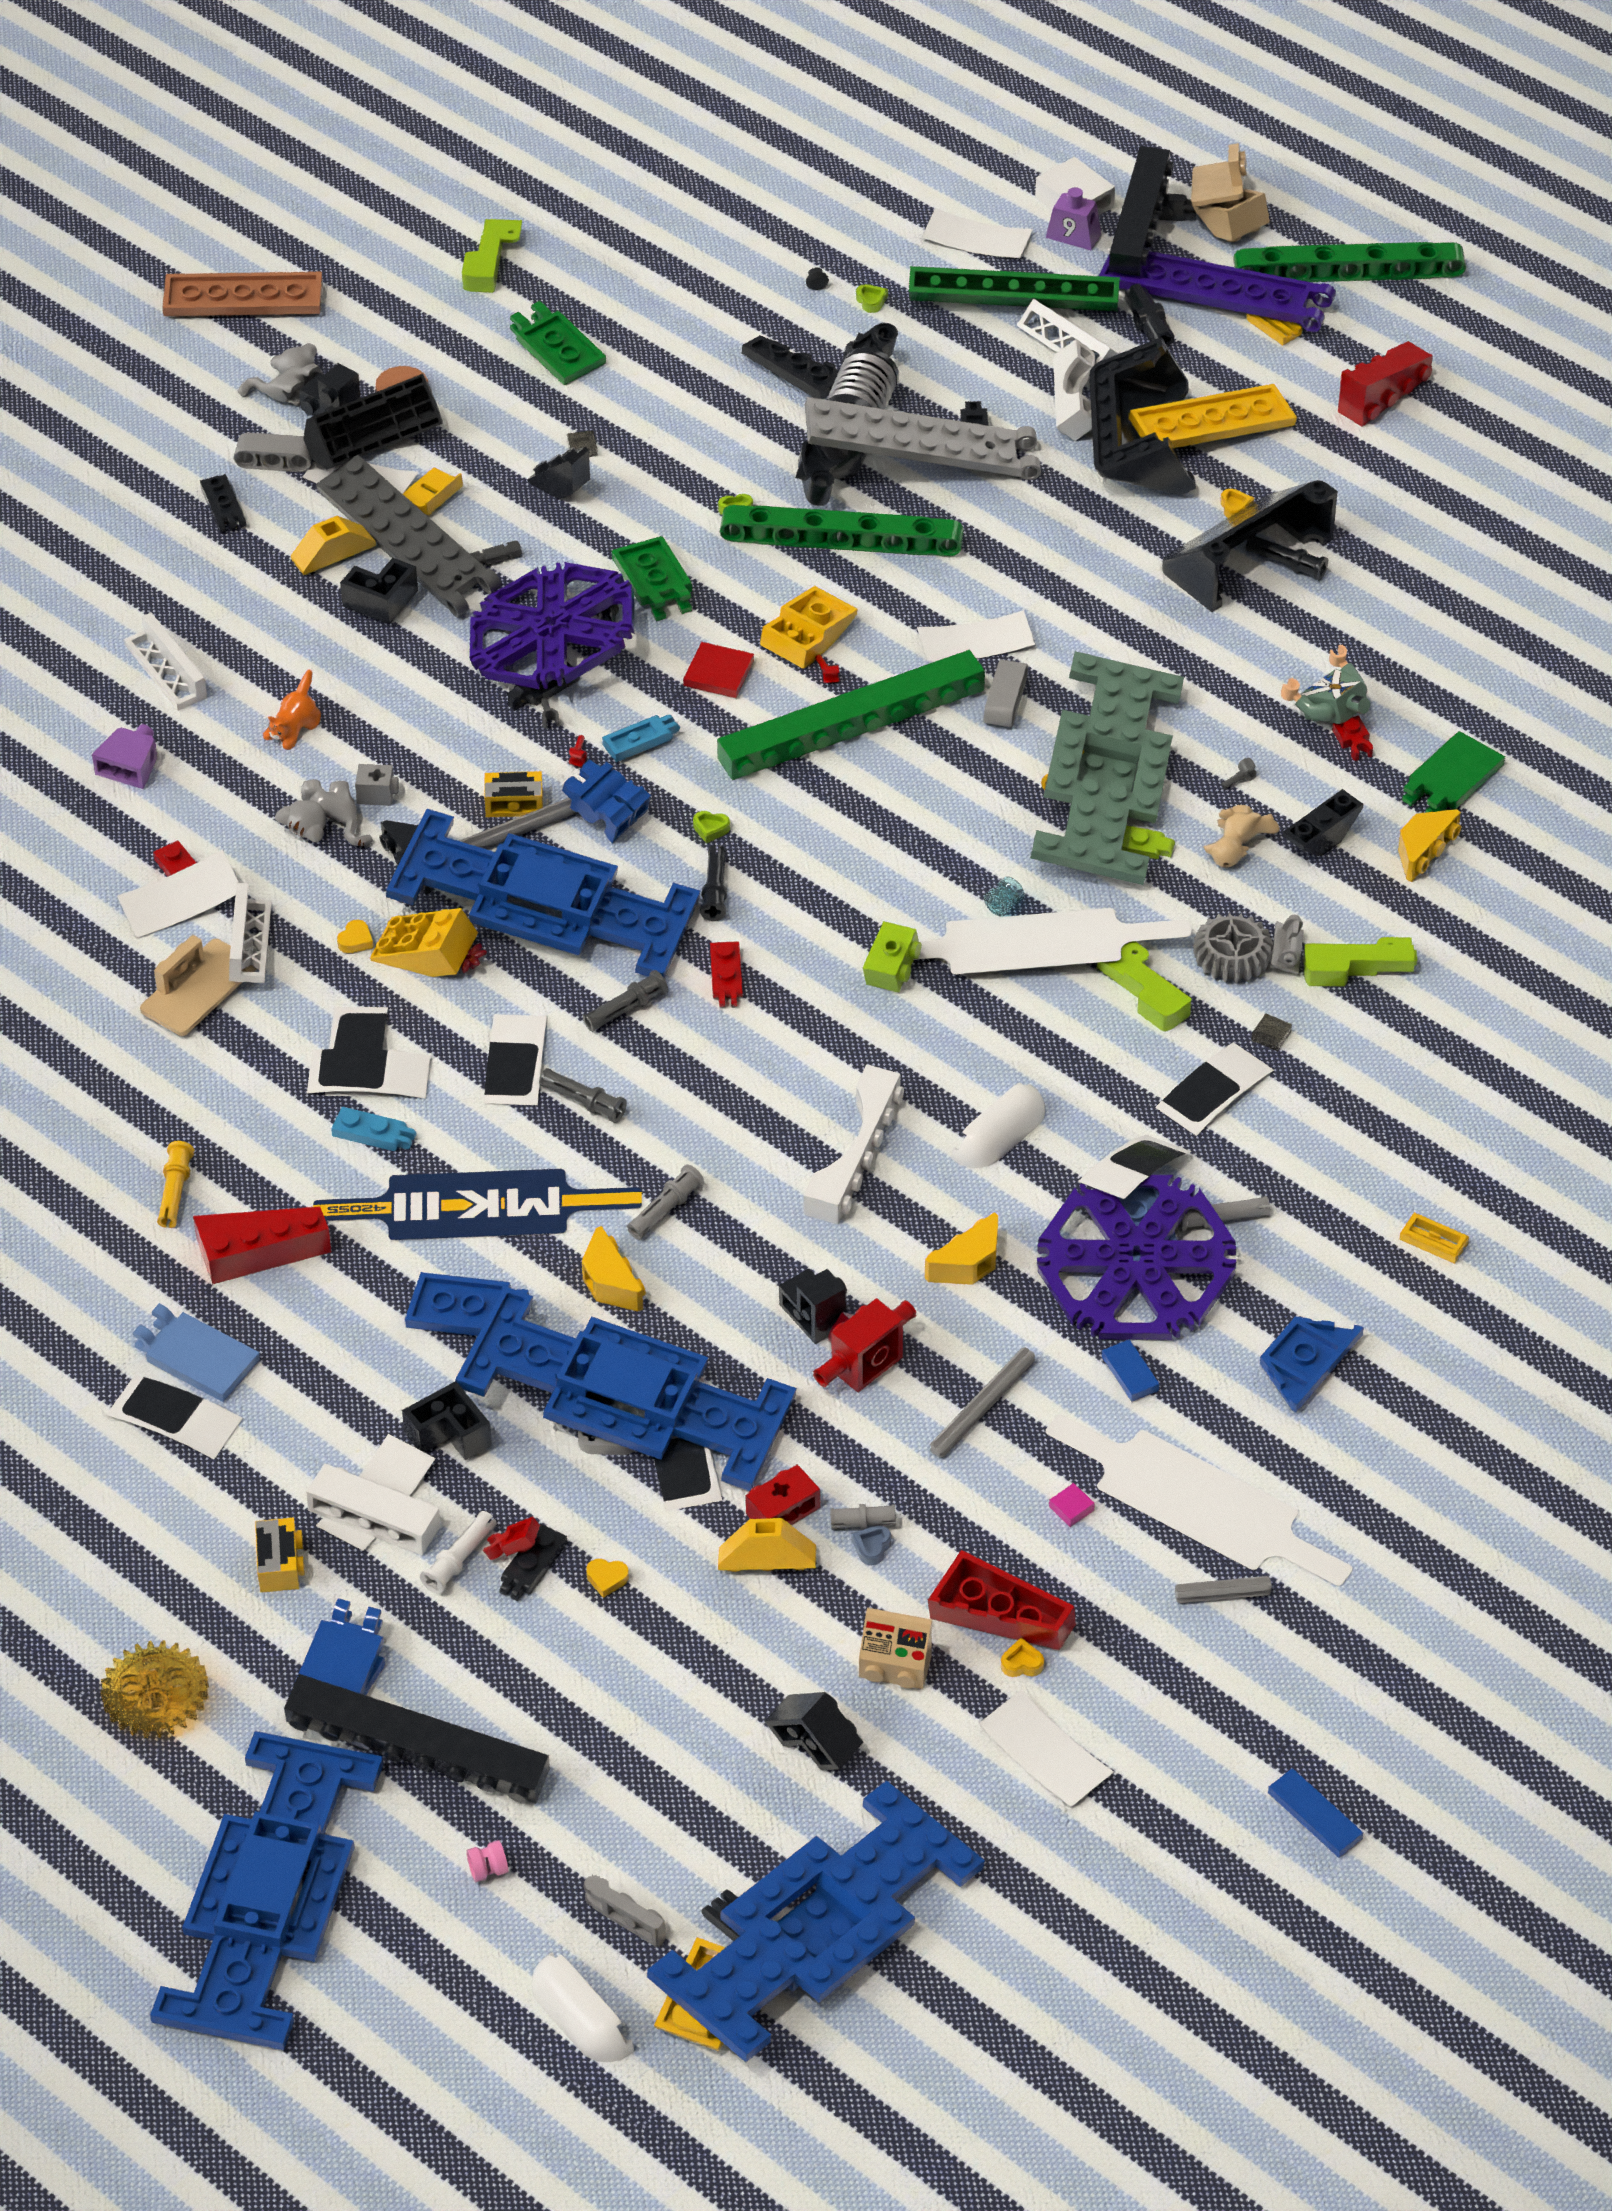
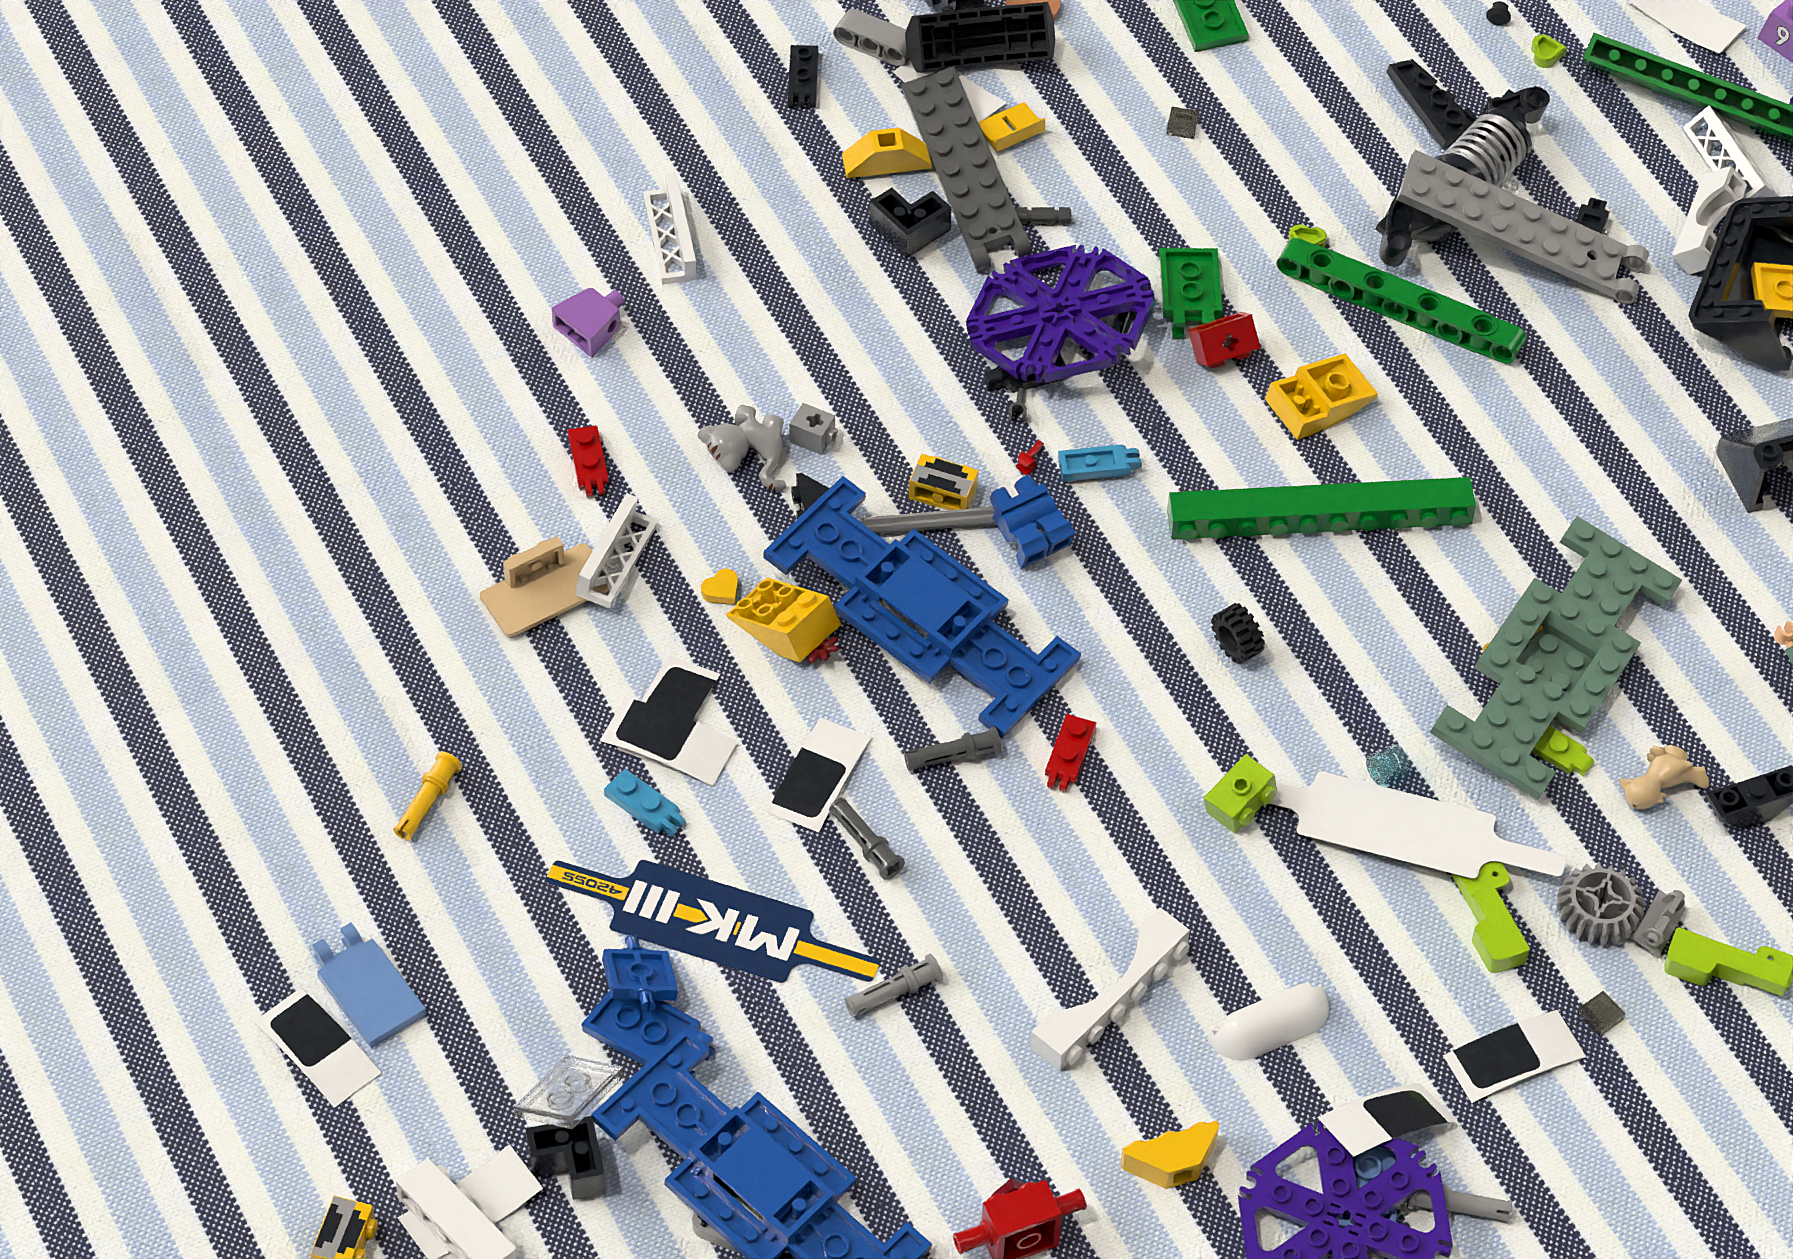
camera: 20 degrees right, 5 degrees up
(179, 895) = (570, 485): white sticker -> none
(259, 1240) = (478, 887): red wedge -> none
(295, 712) = (770, 325): orange animal -> none
(424, 1371) = (569, 1091): none -> clear tile
(438, 1261) = (639, 974): none -> blue plate
(562, 473) = (1145, 150): black slope -> none
(610, 1275) = (802, 1046): yellow slope -> none
(692, 608) = (1208, 339): none -> red brick
(710, 825) = (1126, 583): lime tile -> none
(714, 891) = (1095, 658): black pin -> none
(718, 669) = (1210, 413): red tile -> none
(814, 1302) = (990, 1154): black brick -> none
(829, 831) = (1237, 633): none -> black tyre
(830, 673) = (1321, 454): red hand -> none
(981, 637) = (1488, 464): white sticker -> none
(1005, 693) = (1489, 536): light grey beam -> none
(1246, 772) = (1705, 707): dark grey hand -> none

